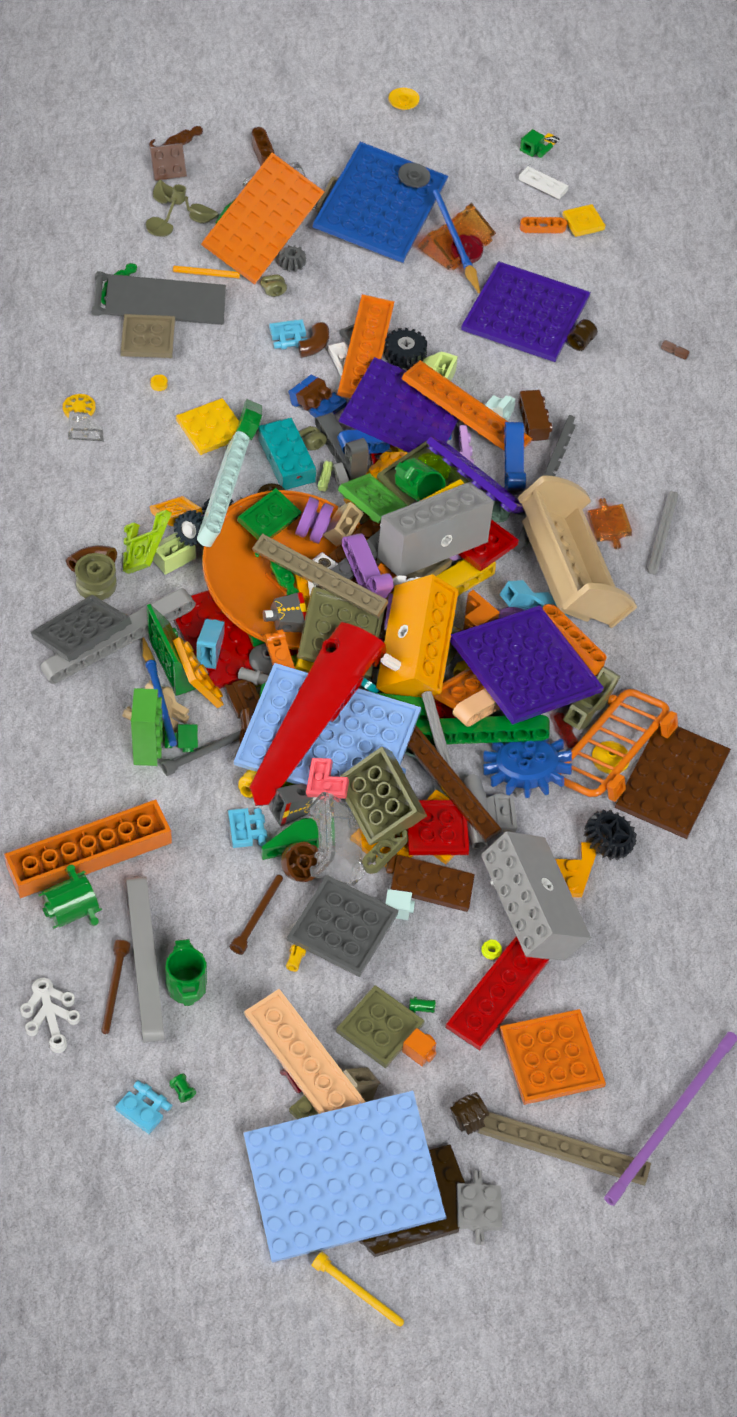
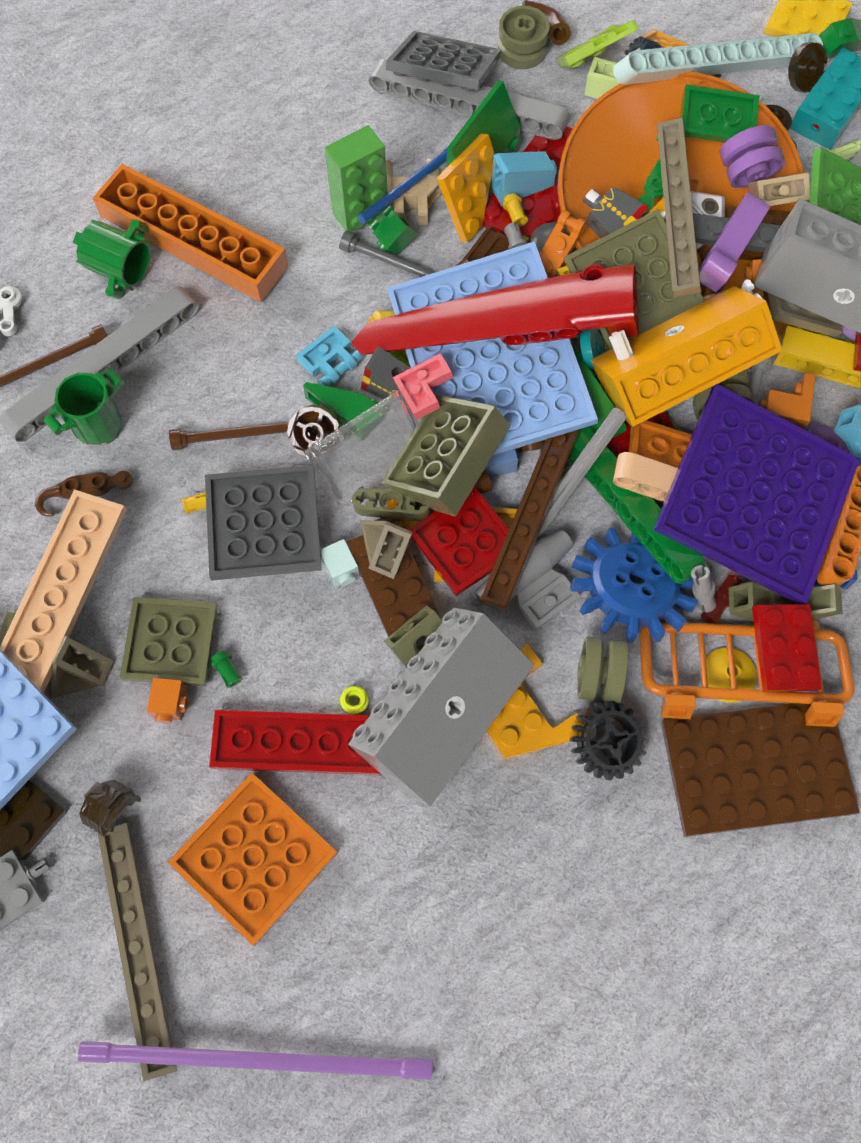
camera: 60 degrees right, 15 degrees up
(228, 662) = (513, 205): none -> yellow pin
(230, 1019) = (93, 484): none -> reddish brown piece
(254, 453) = (806, 66): none -> dark brown tile
(413, 865) = (385, 545): none -> dark tan slope
(480, 890) = (404, 639): none -> olive brick
(558, 728) = (703, 588): none -> light grey pin
(568, 809) = (602, 669): none -> olive wheel
(621, 714) = (786, 648): none -> red plate

